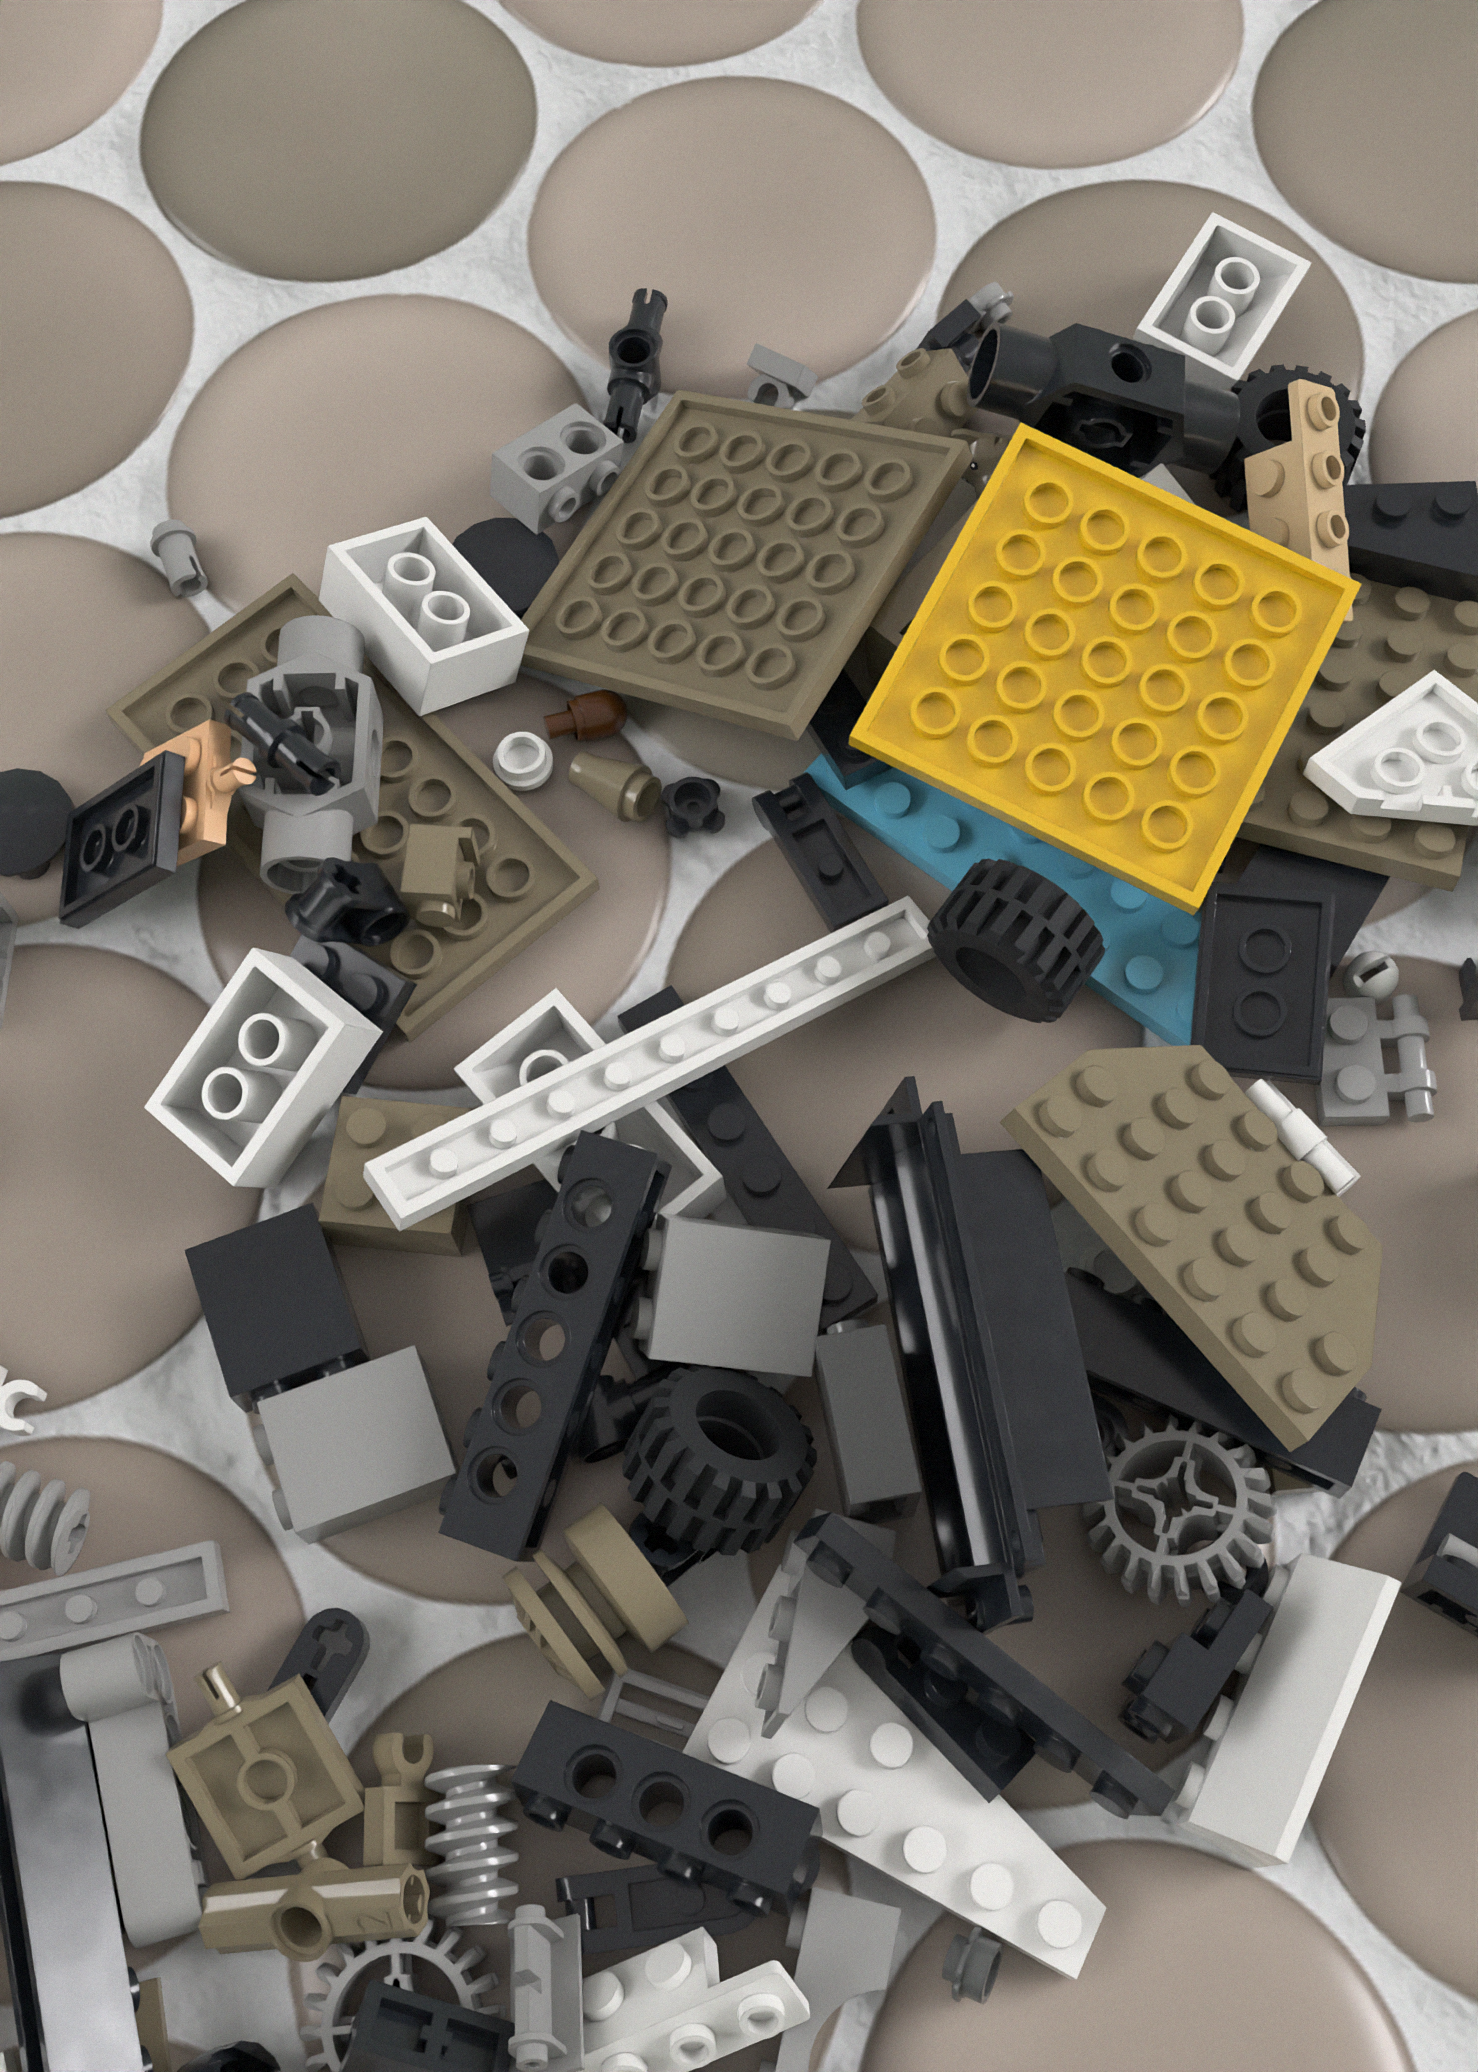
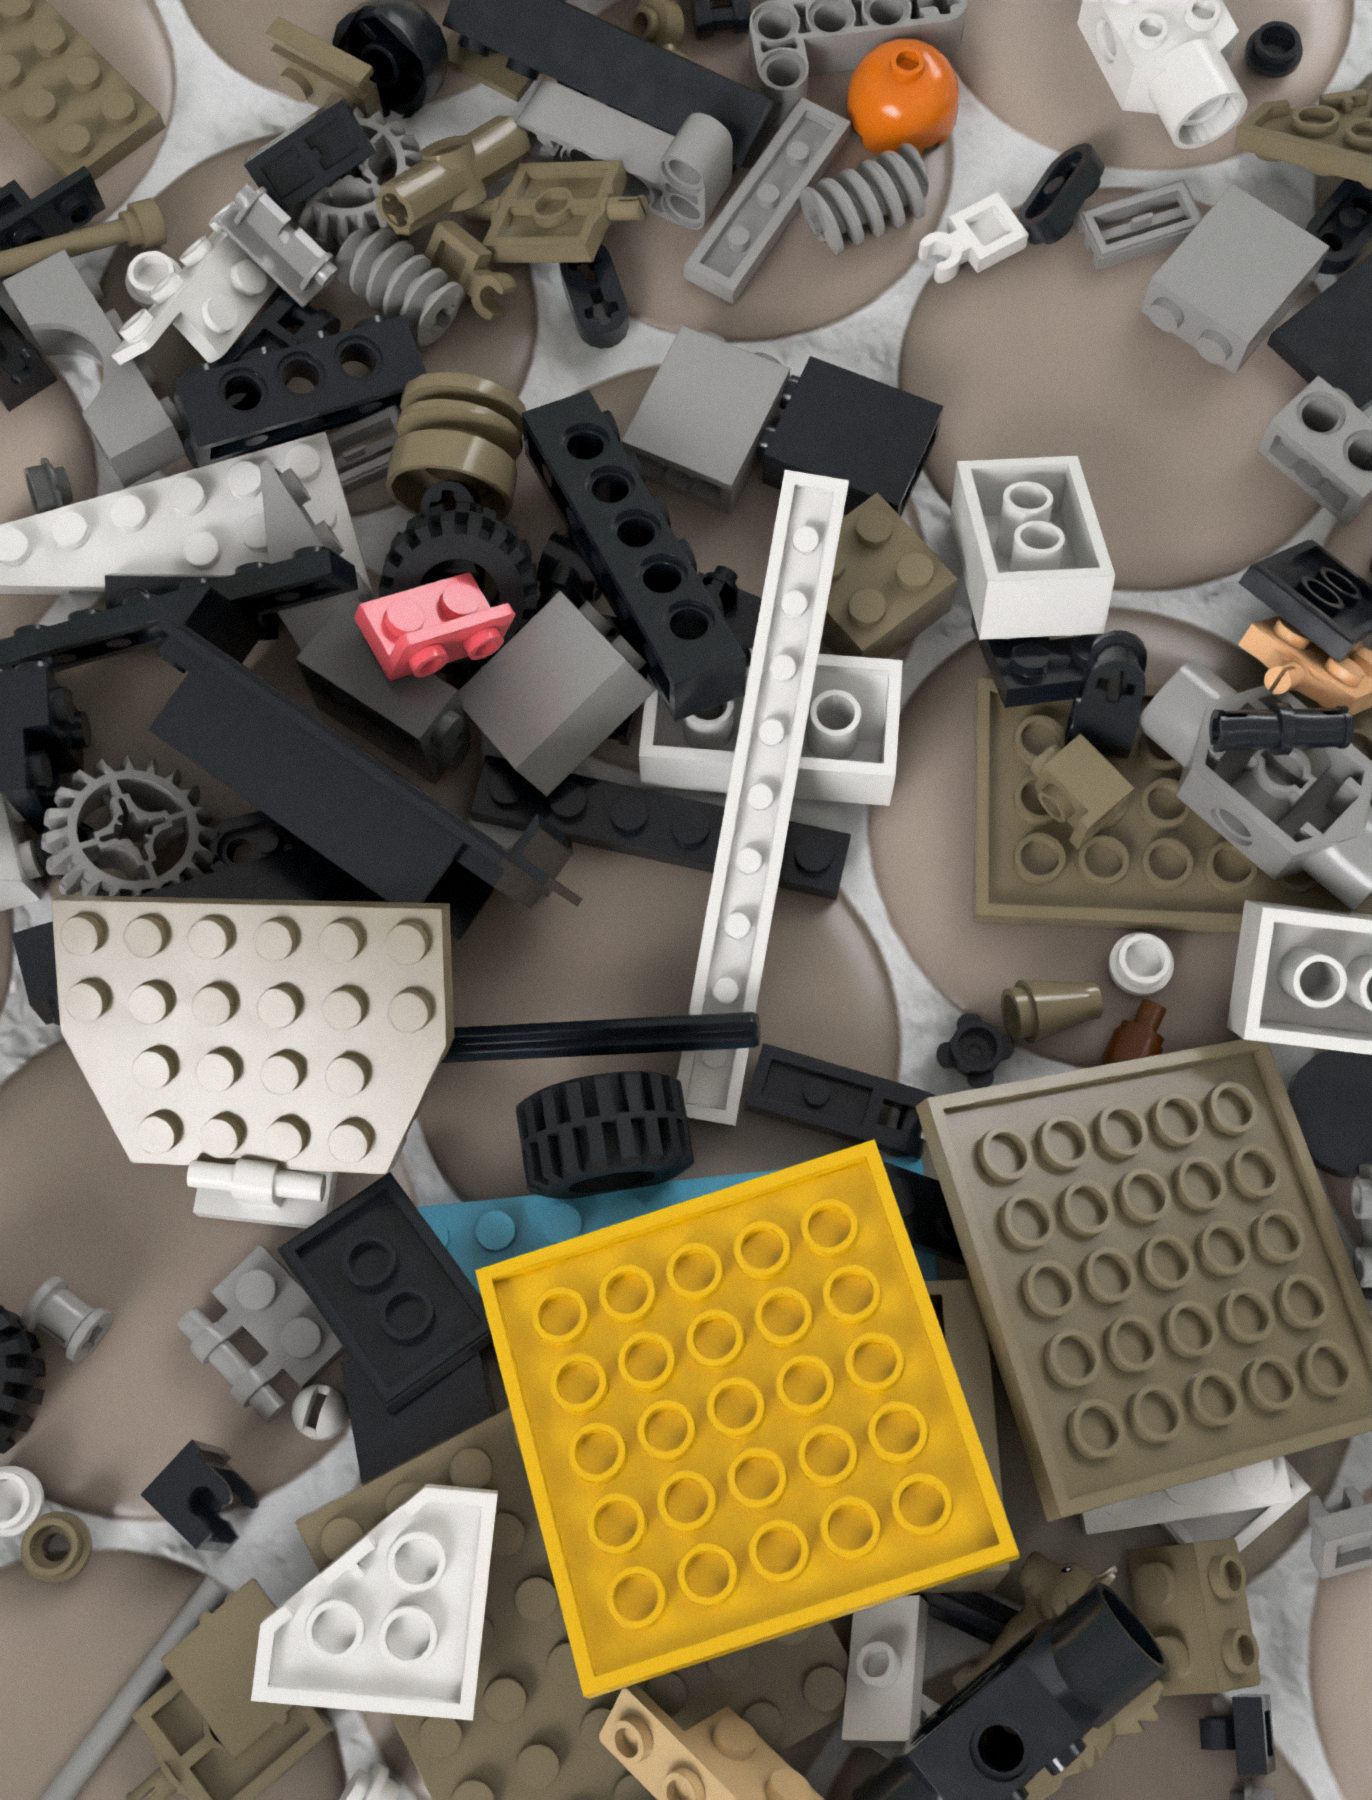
camera: 135 degrees right, 5 degrees up
(787, 1401) = (432, 626): none -> coral bracket
(932, 1004) = (605, 1037): none -> black axle

